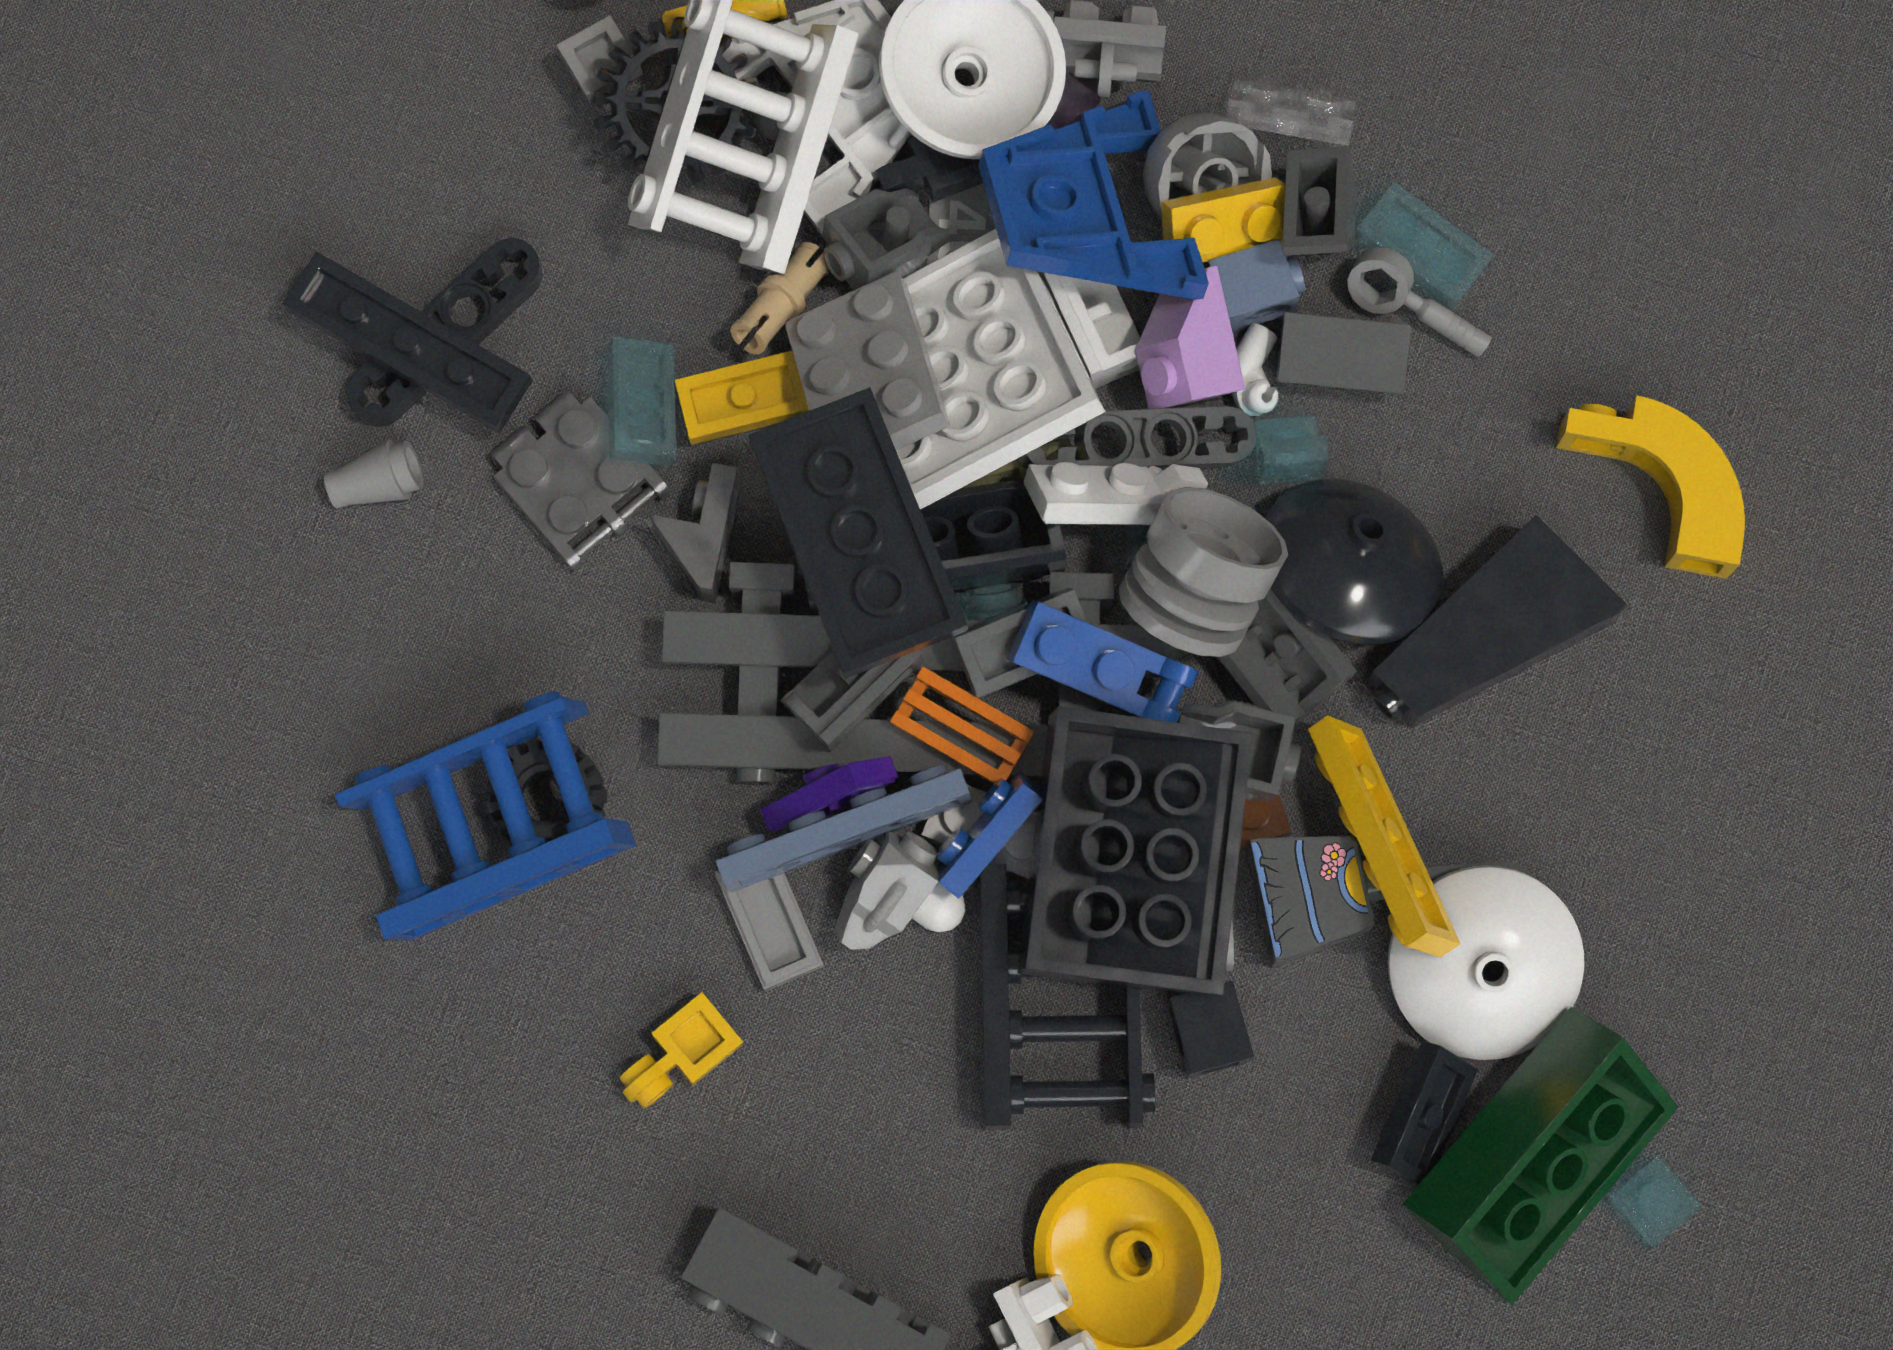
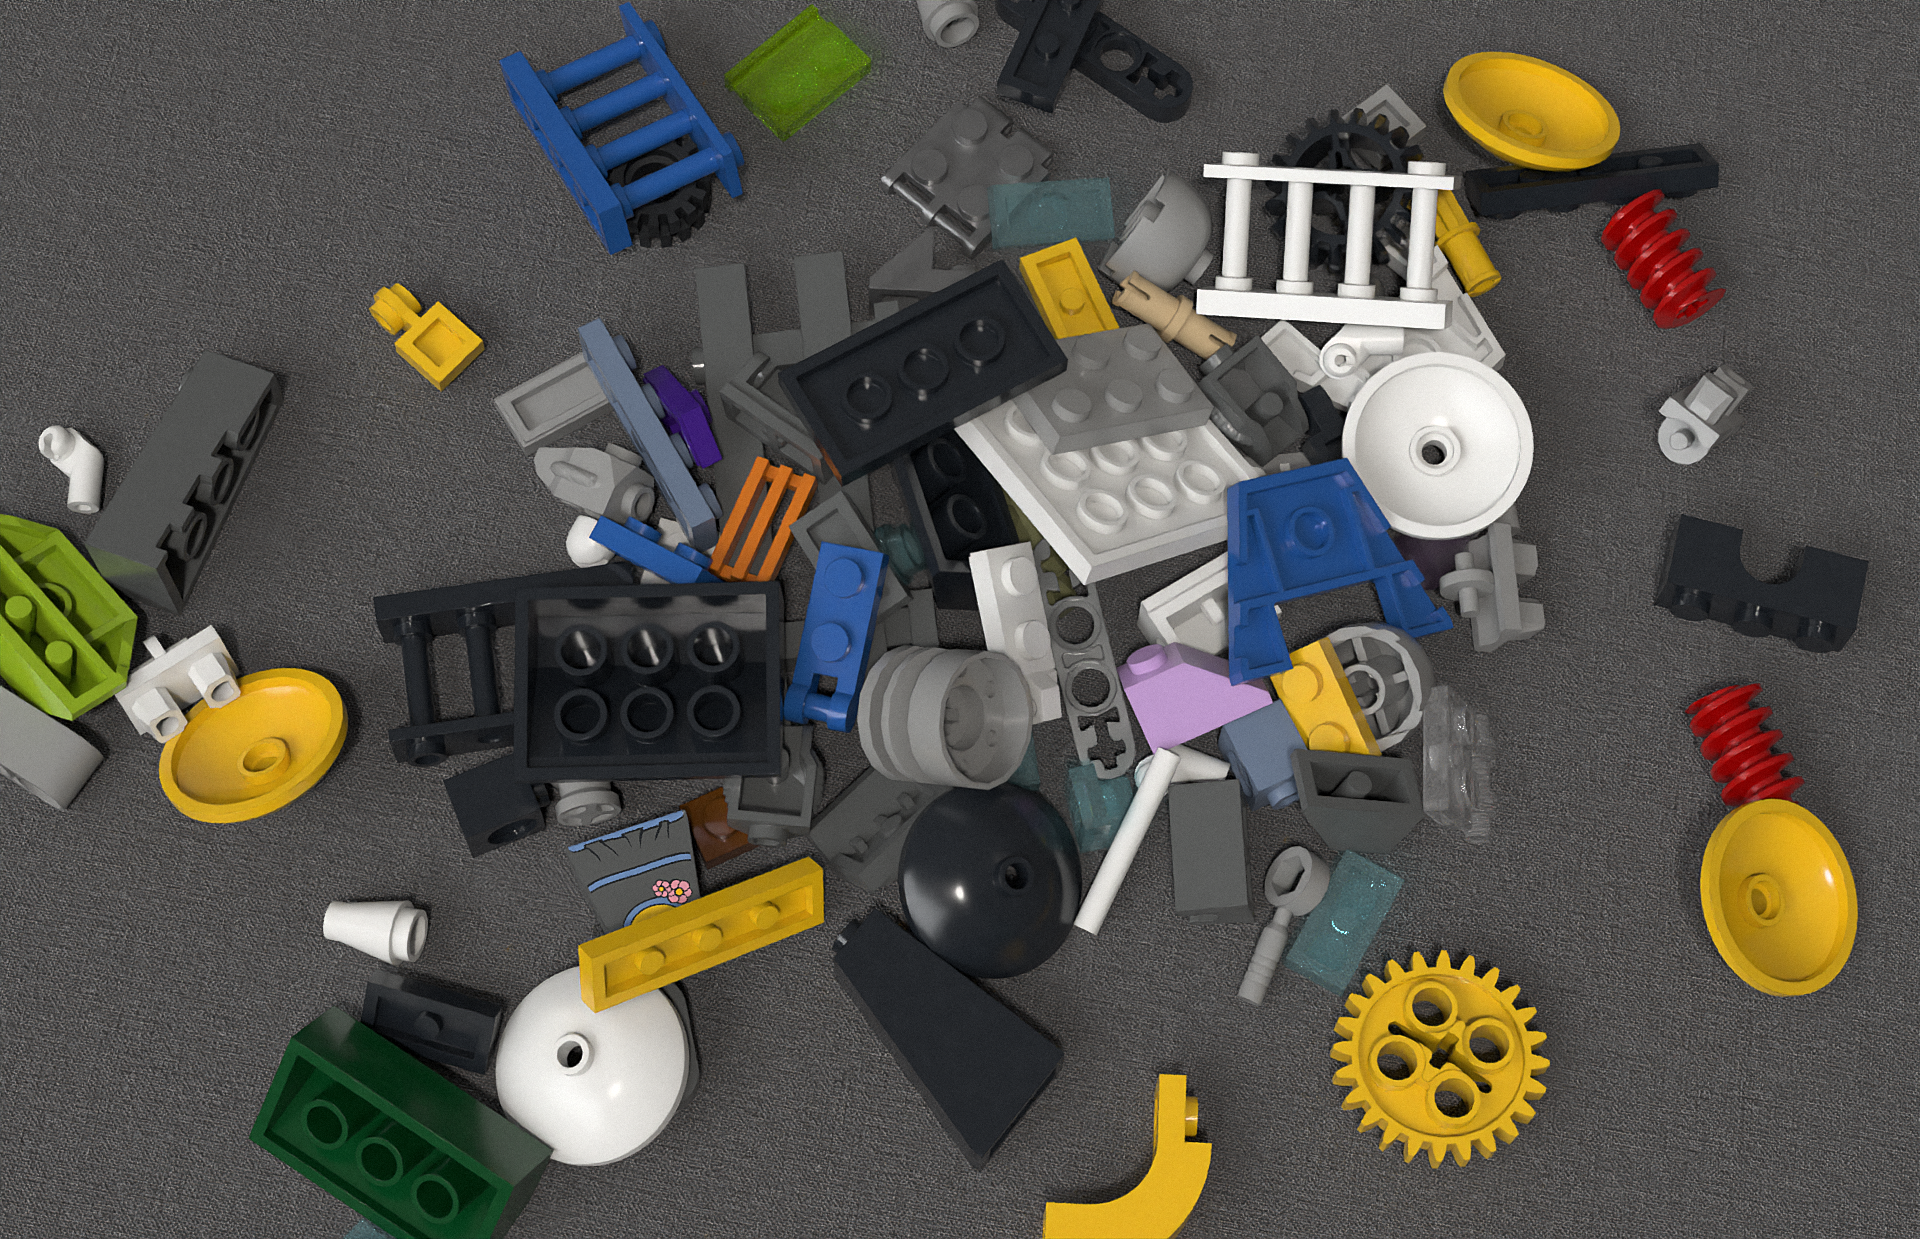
camera: 75 degrees right, 10 degrees down
(428, 637) = (797, 73): none -> clear neon green plate
(692, 296) = (1163, 236): none -> light grey cylinder
(846, 134) = (1355, 344): none -> white arm
(1317, 423) = (1127, 841): none -> white bar
(1321, 1158) = (379, 928): none -> white cone
(1608, 217) = (1408, 1106): none -> yellow gear

